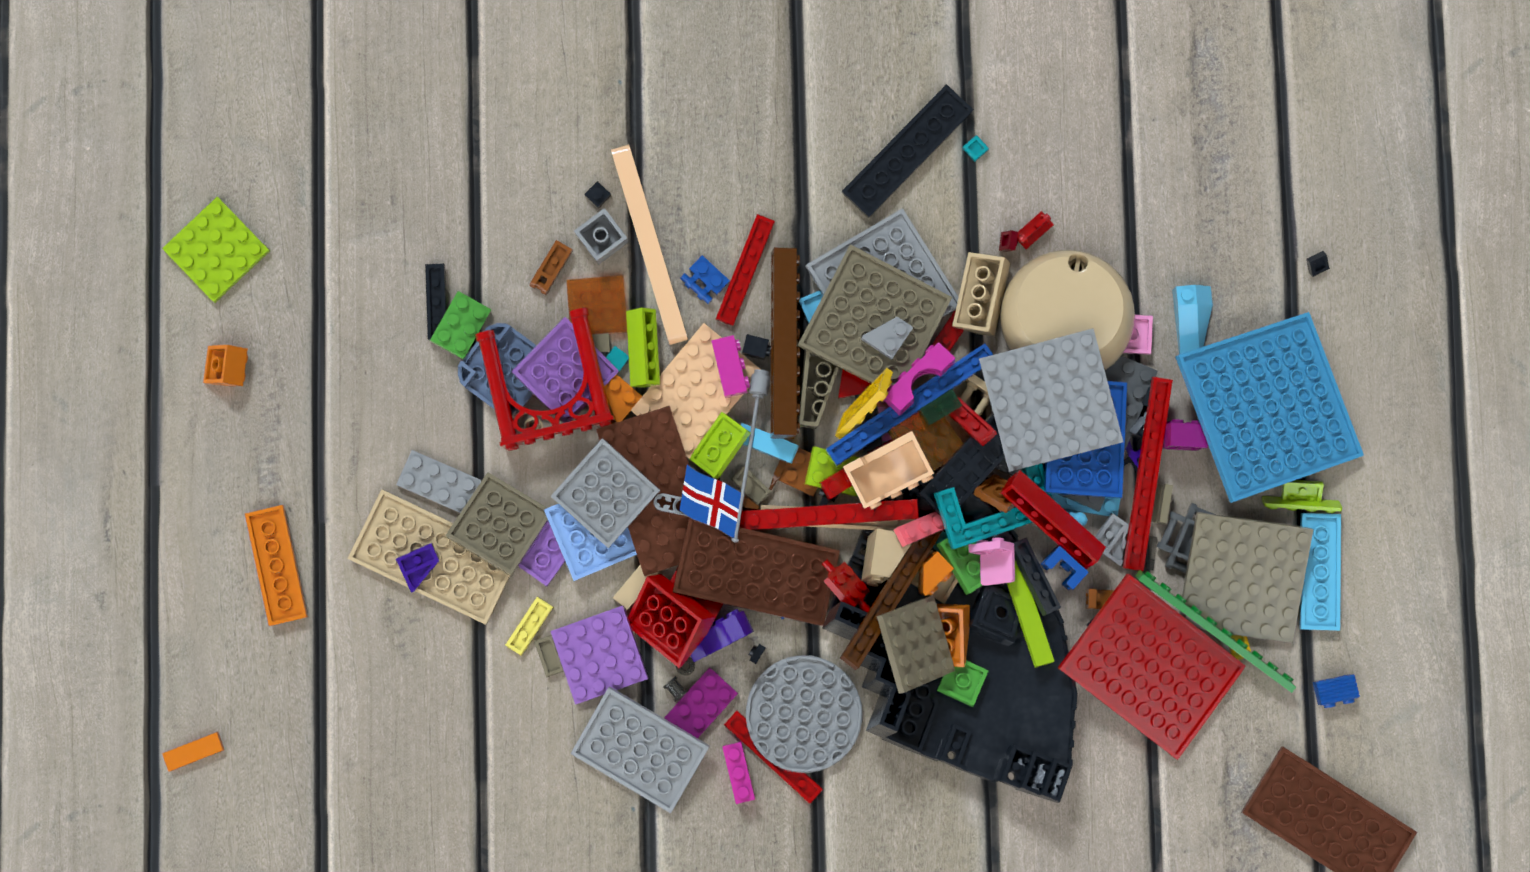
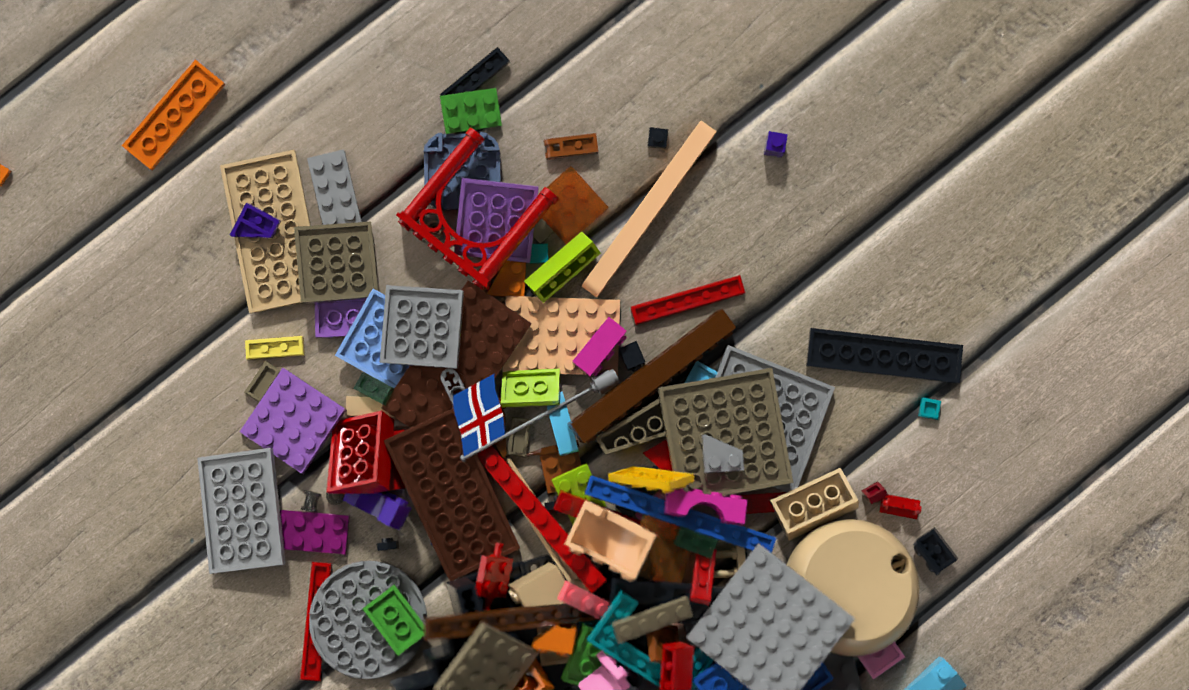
camera: 45 degrees right, 0 degrees up
(601, 236) = (625, 166): light grey brick -> none
(624, 570) = (374, 388): none -> clear green plate
(675, 106) = (775, 144): none -> dark purple brick
(708, 275) = (661, 274): blue plate -> none
(738, 772) = (281, 603): dark pink brick -> none
(821, 690) = (395, 619): none -> bright green plate
(975, 486) = (652, 619): none -> dark tan plate
(1089, 230) = (934, 551): none -> black bracket

